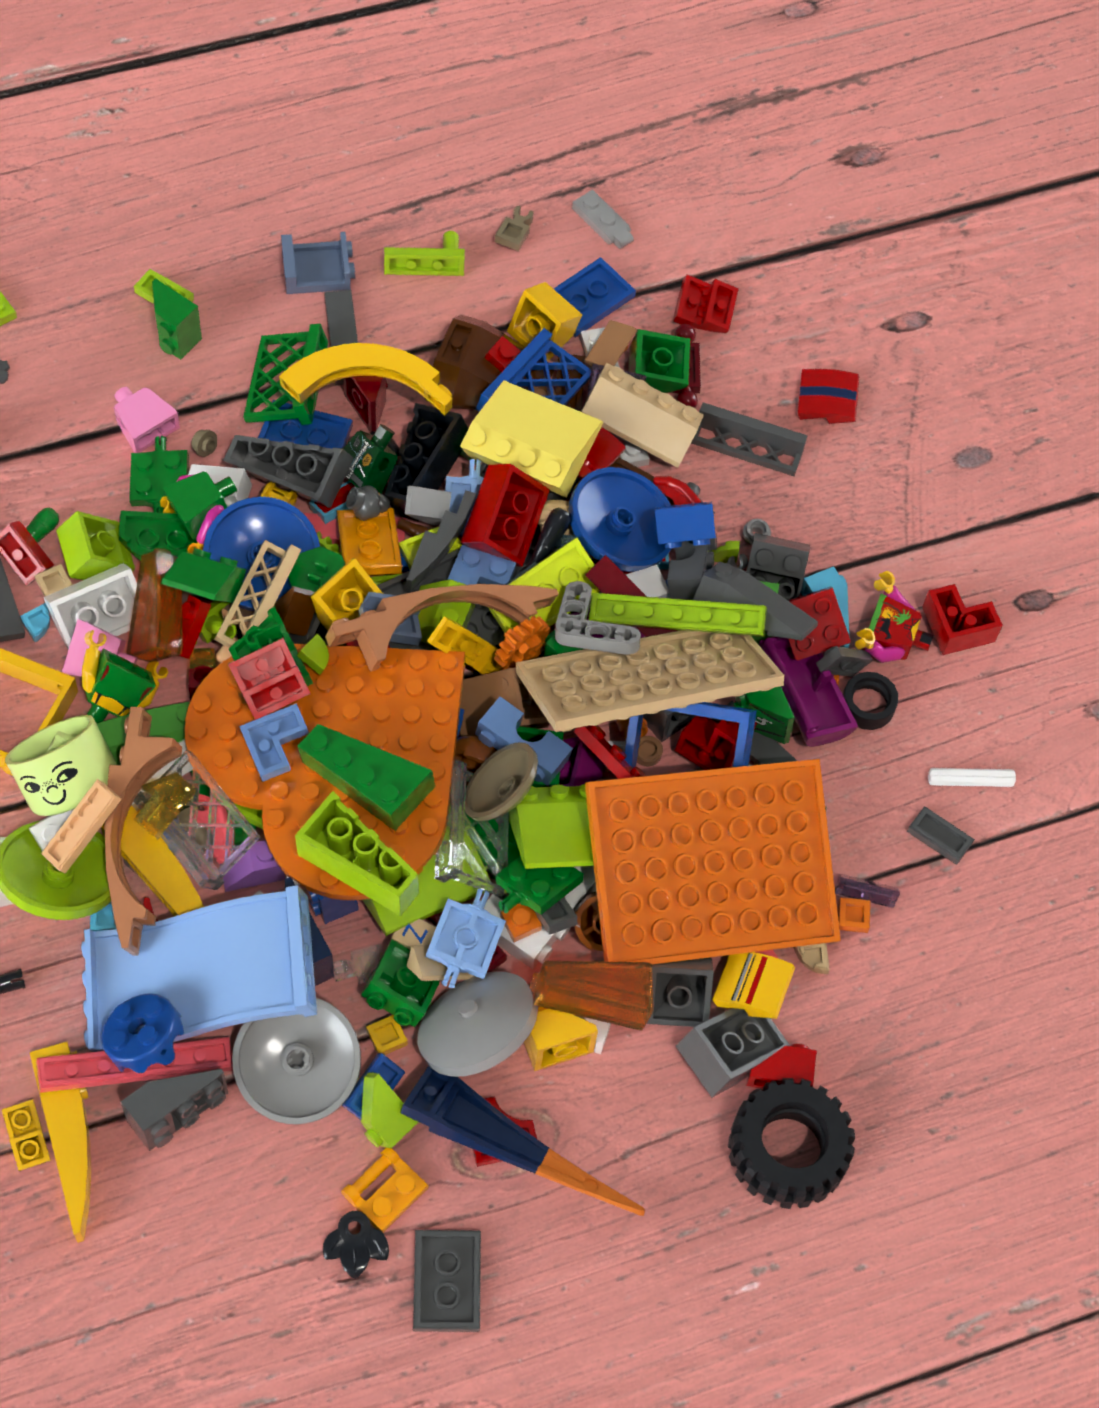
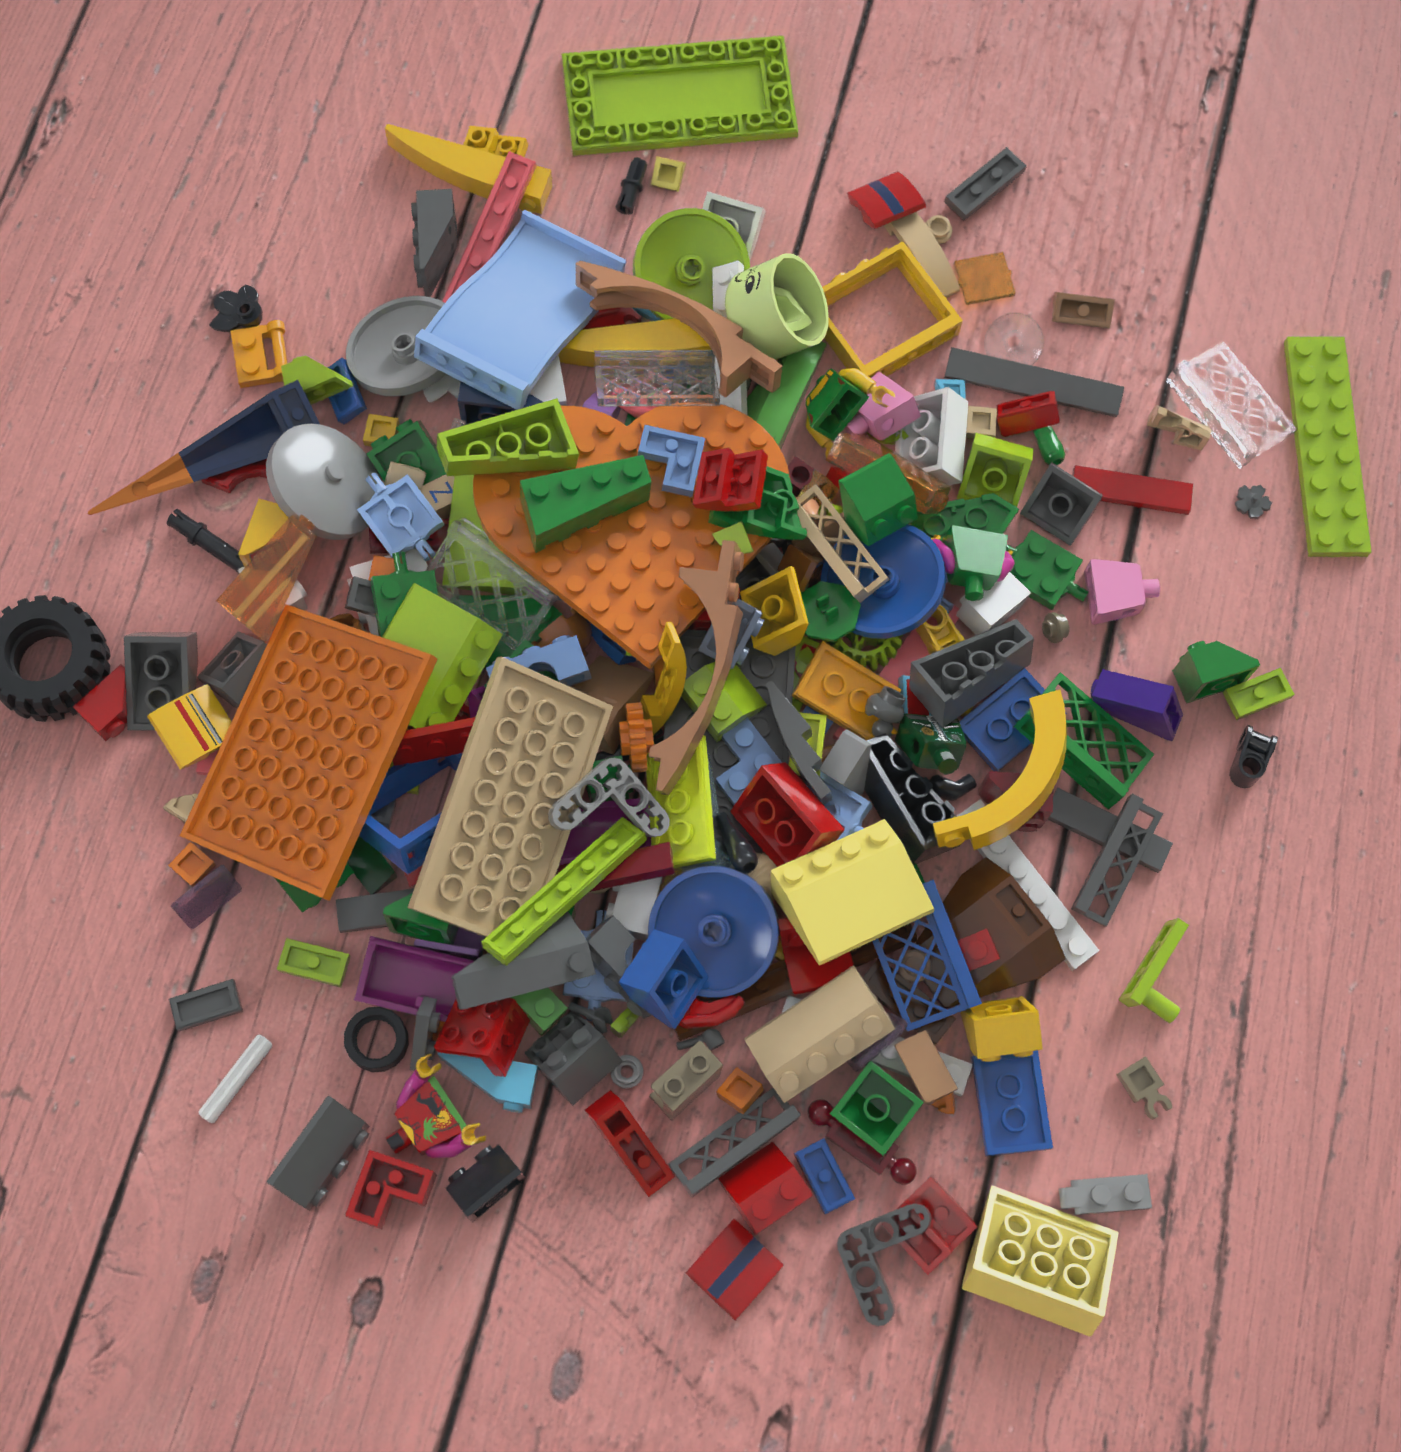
camera: 125 degrees right, 10 degrees up
(41, 454) = (1137, 489): none -> red tile
(81, 826) = (705, 285): light nougat plate -> none
(94, 486) = (1061, 504): none -> dark grey slope
(153, 1041) = (490, 248): blue plate -> none
(166, 801) = (680, 353): clear yellow slope -> none
(221, 272) = (1254, 752): none -> black piece
(231, 358) = (1139, 702): none -> dark purple slope
(317, 265) = (1213, 856): sand blue panel -> none
(367, 316) = (1109, 852): none -> dark grey fence
(403, 403) = (1071, 936): none -> white plate
(447, 1281) = (160, 354): dark grey tile -> none
(501, 782) = (500, 608): dark tan dish -> none
(590, 1099) = (199, 535): none -> black pin
(677, 230) = (1041, 1261): none -> light yellow slope
(713, 454) = (739, 1090): none -> orange plate
(726, 377) = (824, 1176): none -> blue plate
(739, 478) = (685, 1080): none -> dark tan panel
(748, 325) = (869, 1246): none -> dark grey beam
(766, 396) = (765, 1188): none -> red slope
(802, 502) = (629, 1142): none -> red slope
(852, 779) = (313, 962): none -> lime plate
(909, 559) = (484, 1182): none -> black slope
(975, 681) = (319, 1154): none -> dark grey slope

